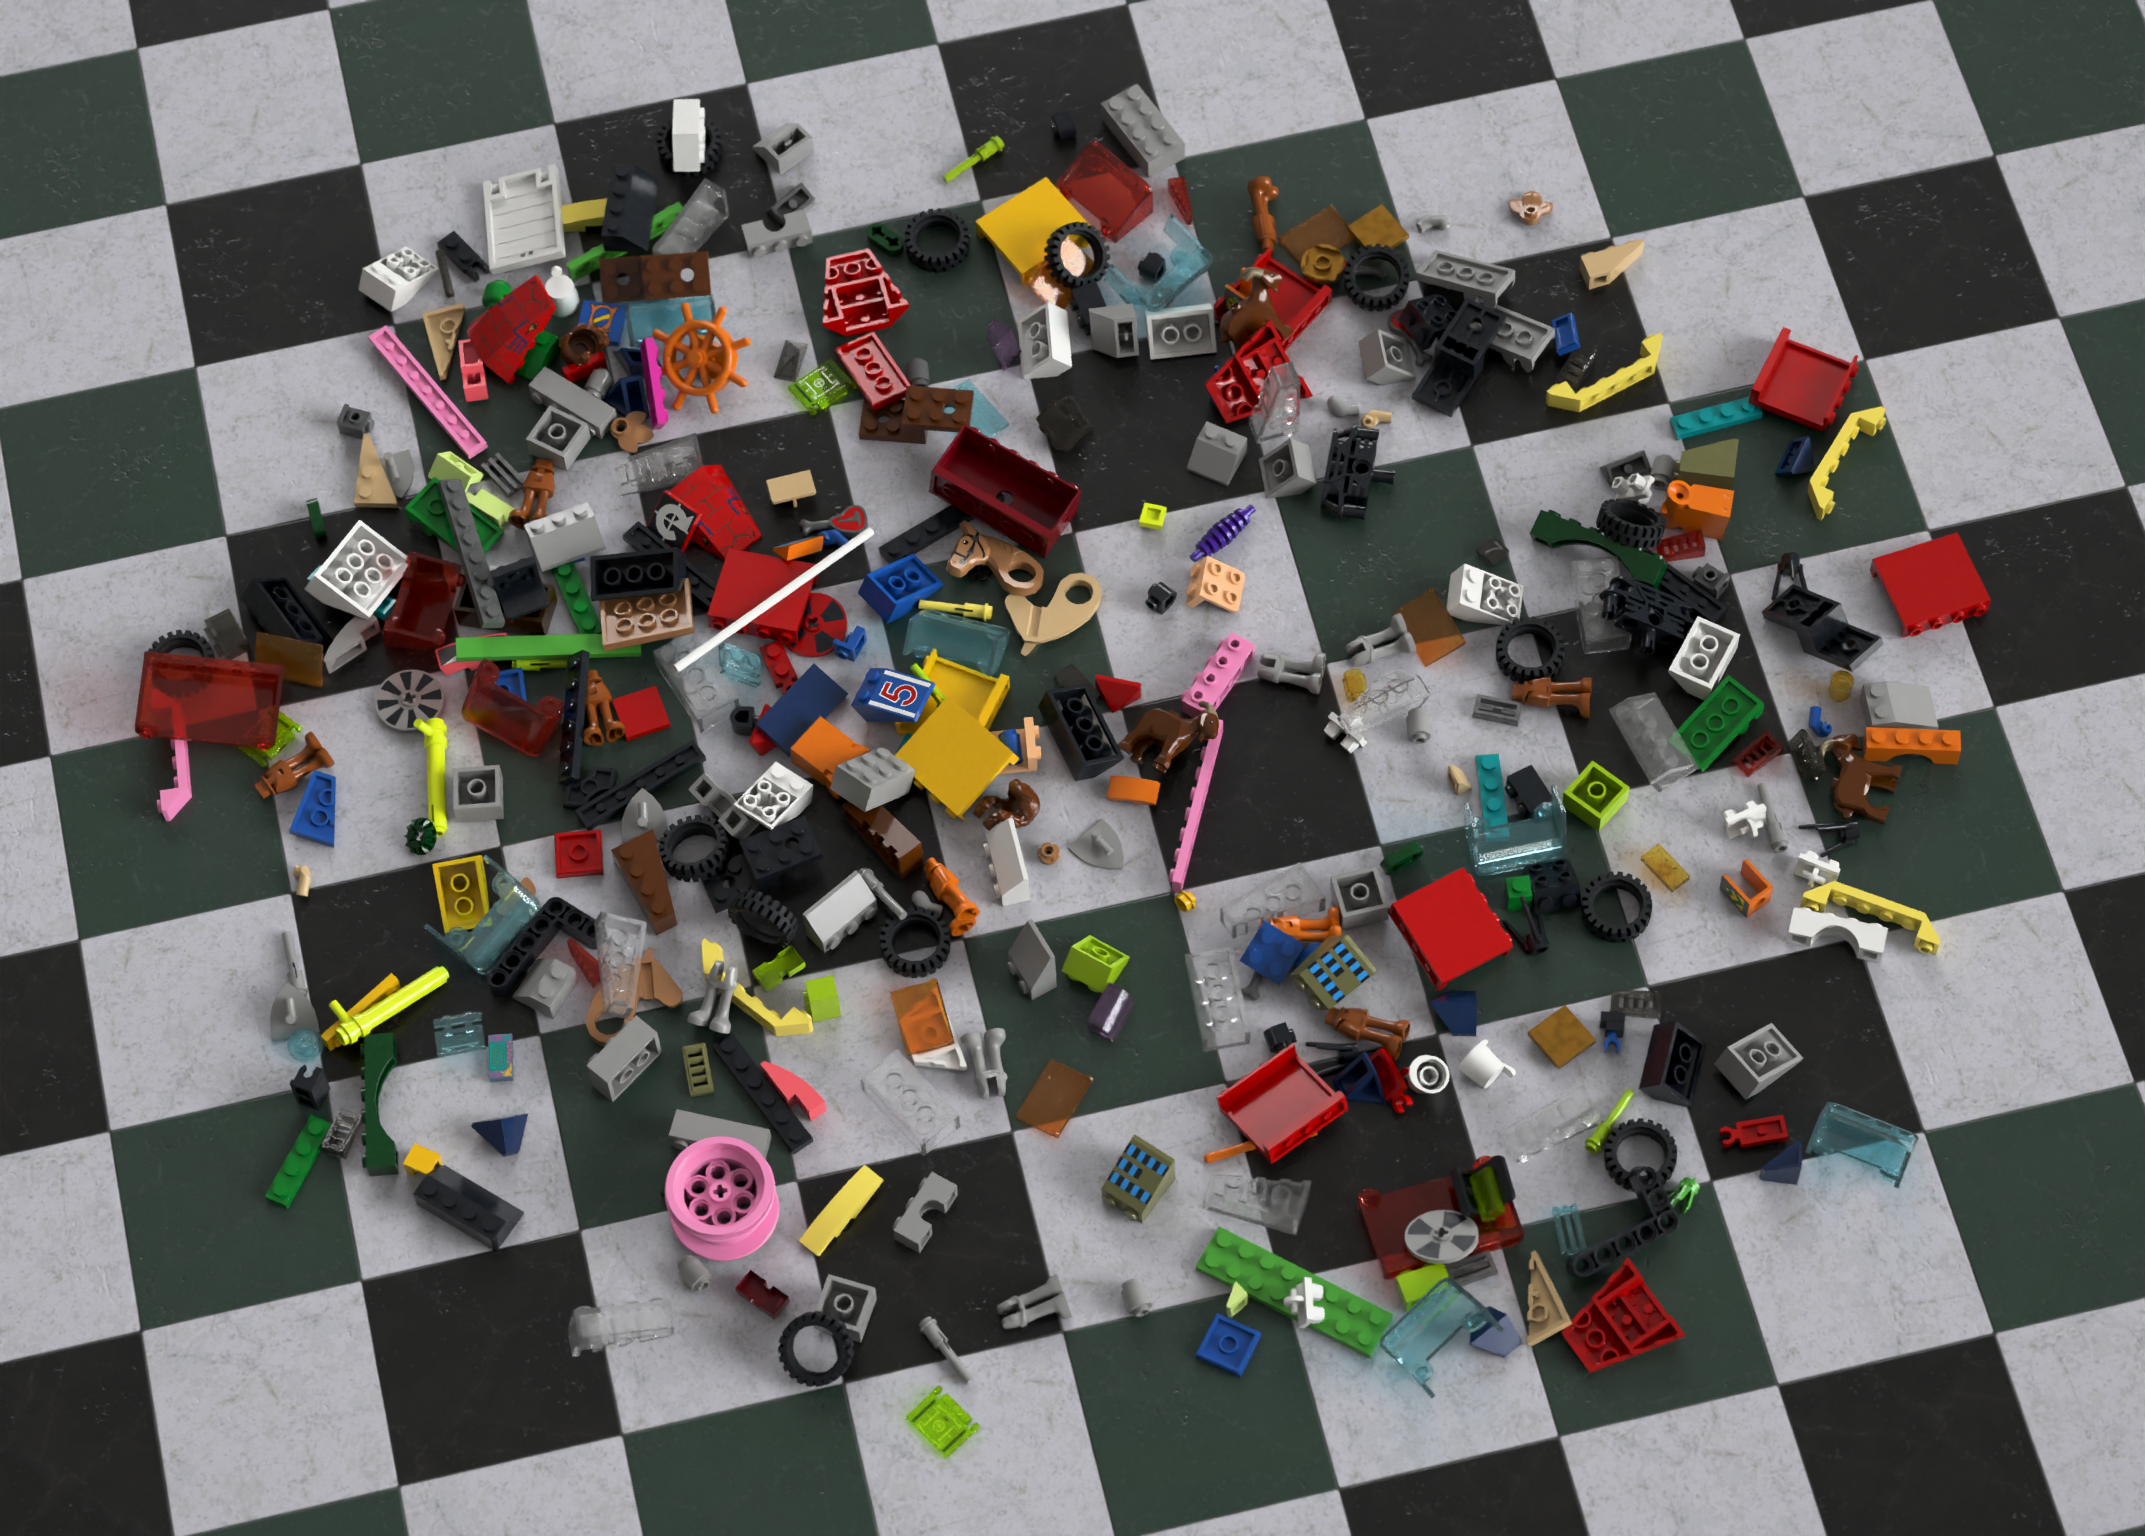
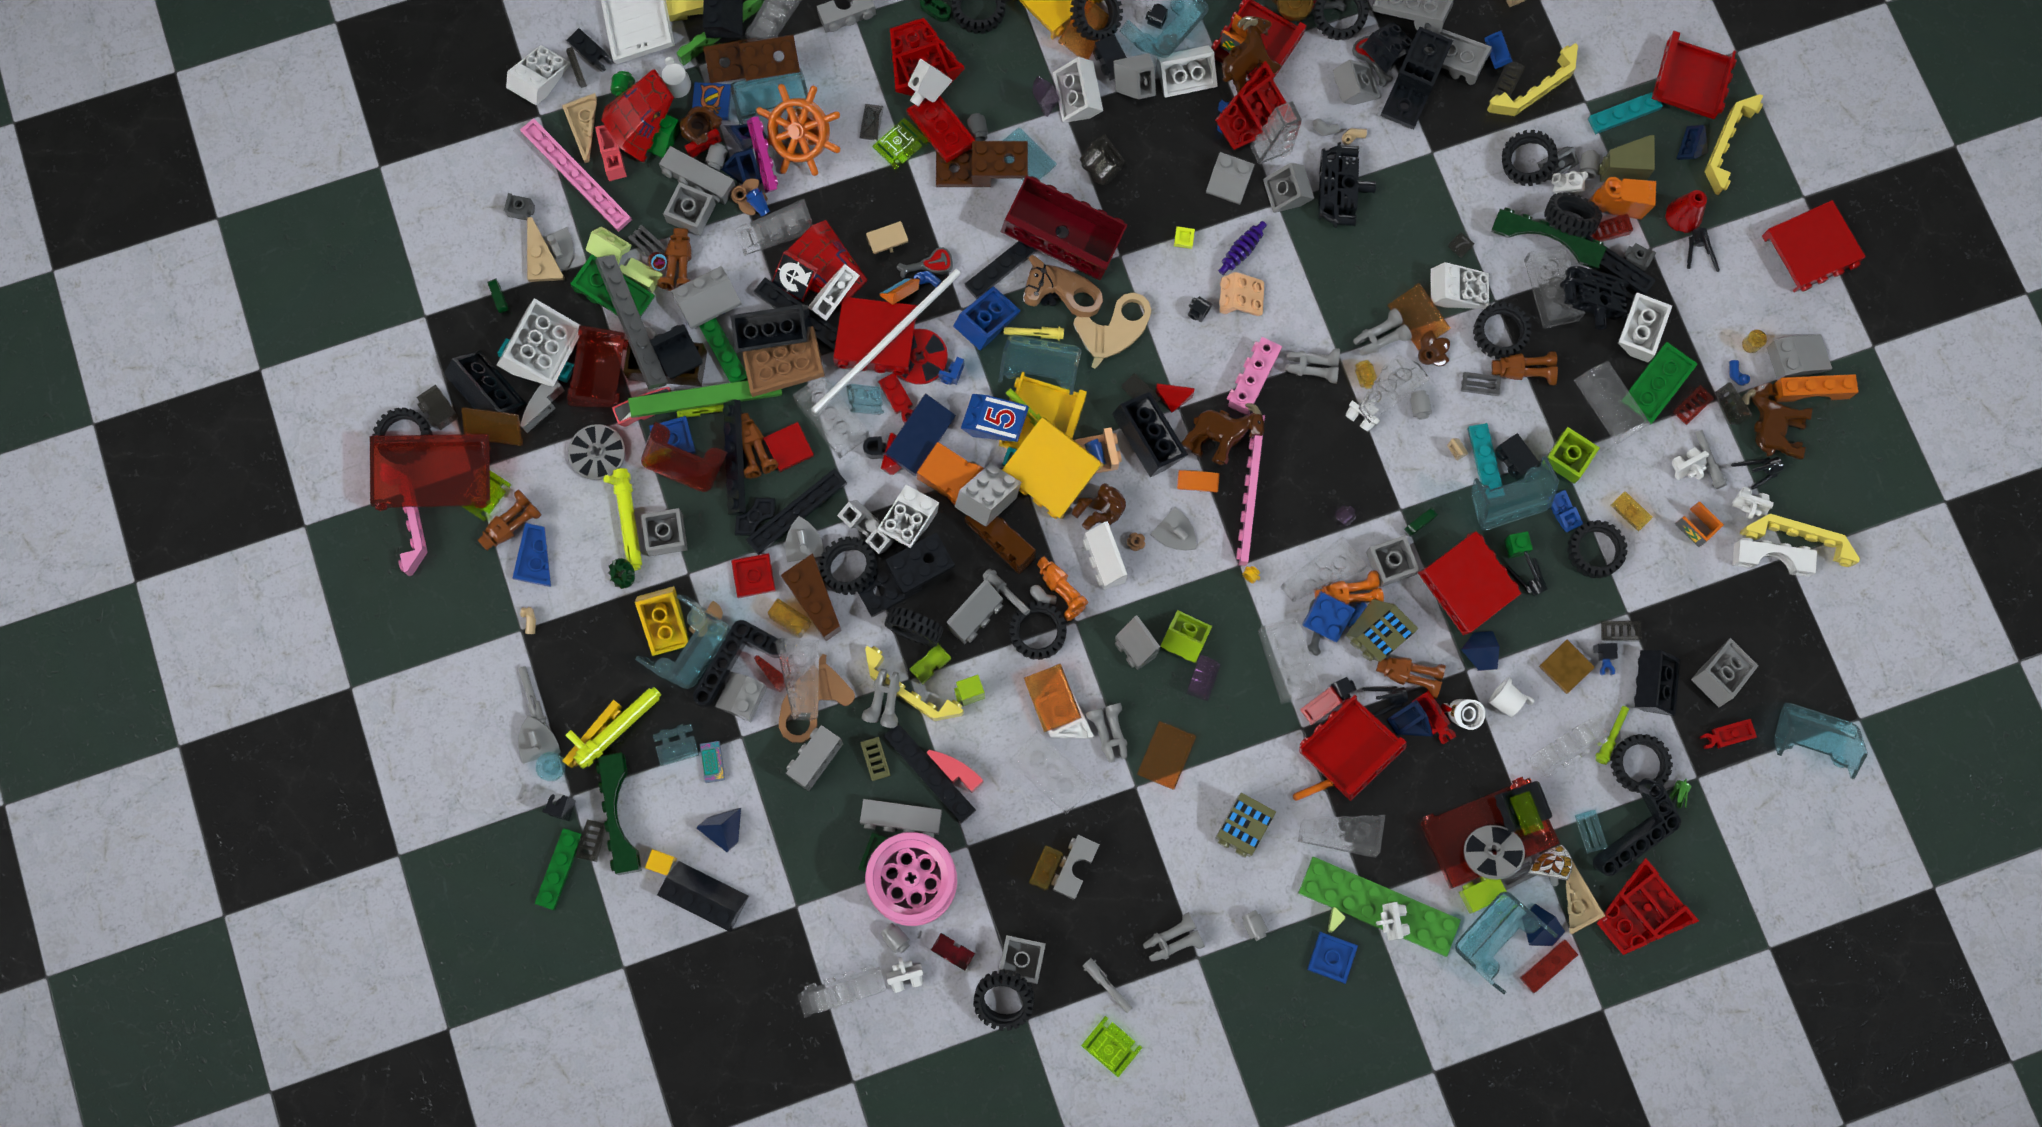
camera: 10 degrees left, 15 degrees up
(512, 494) = (657, 261): none -> clear red tile
(614, 900) = (789, 618): none -> clear yellow brick
(641, 435) = (757, 201): none -> blue cone
(712, 1315) = (902, 972): none -> white hips
(718, 541) = (833, 292): none -> white slope
(840, 1210) = (1007, 872): light yellow slope -> none
(862, 318) = (927, 83): none -> white torso
(887, 1207) = (1046, 868): none -> clear yellow brick
(1251, 1054) = (1321, 705): none -> tile
(1310, 843) = (1345, 515): none -> clear purple piece
(1445, 663) = (1436, 349): none -> reddish brown plate
(1496, 1378) = (1548, 966): none -> clear red tile
(1514, 1259) = (1554, 864): none -> shield
(1553, 886) = (1545, 533): black bracket -> none
(1582, 437) = (1522, 139): none -> black tyre
(1582, 860) = (1565, 512): none -> blue slope
(1776, 532) = (1686, 211): none -> red cone
(1785, 1166) = (1759, 762): dark blue slope -> none
(1822, 628) = (1735, 293): black bracket -> none

